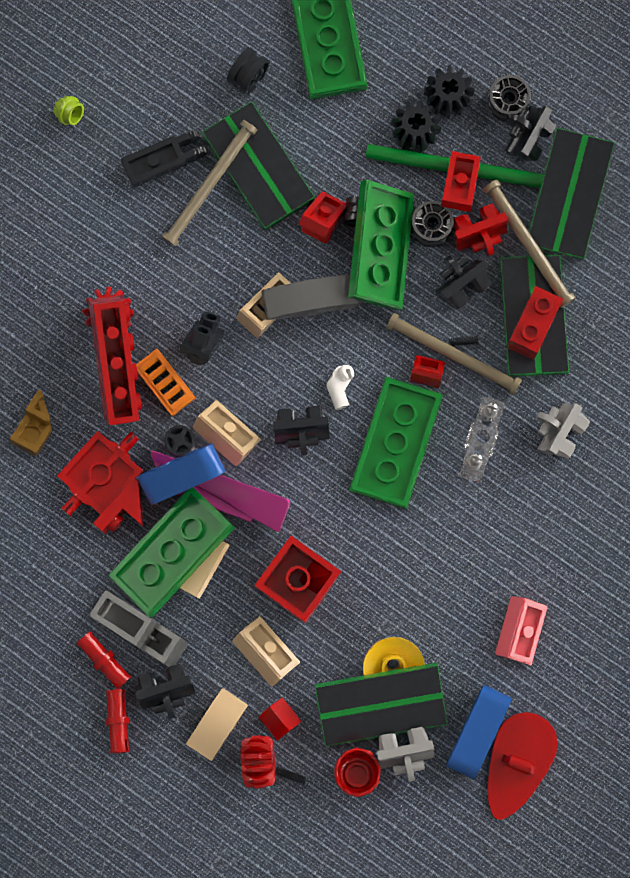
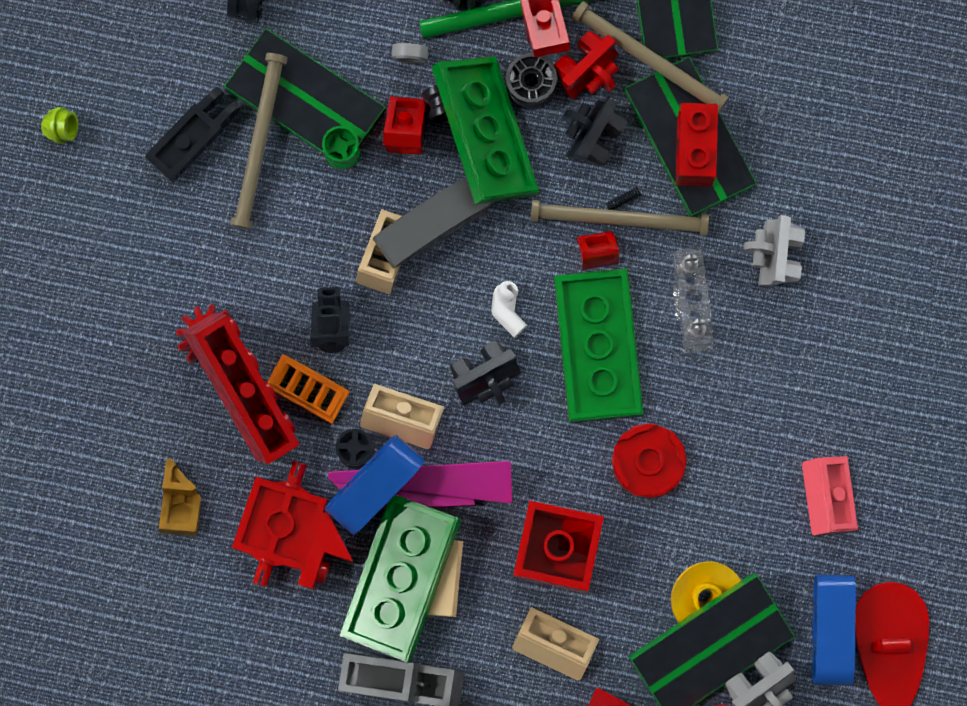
camera: 25 degrees left, 0 degrees up
(267, 207) = (338, 141): none -> green wheel
(350, 164) = (409, 53): none -> light grey tile
(396, 545) = (648, 461): none -> red tile

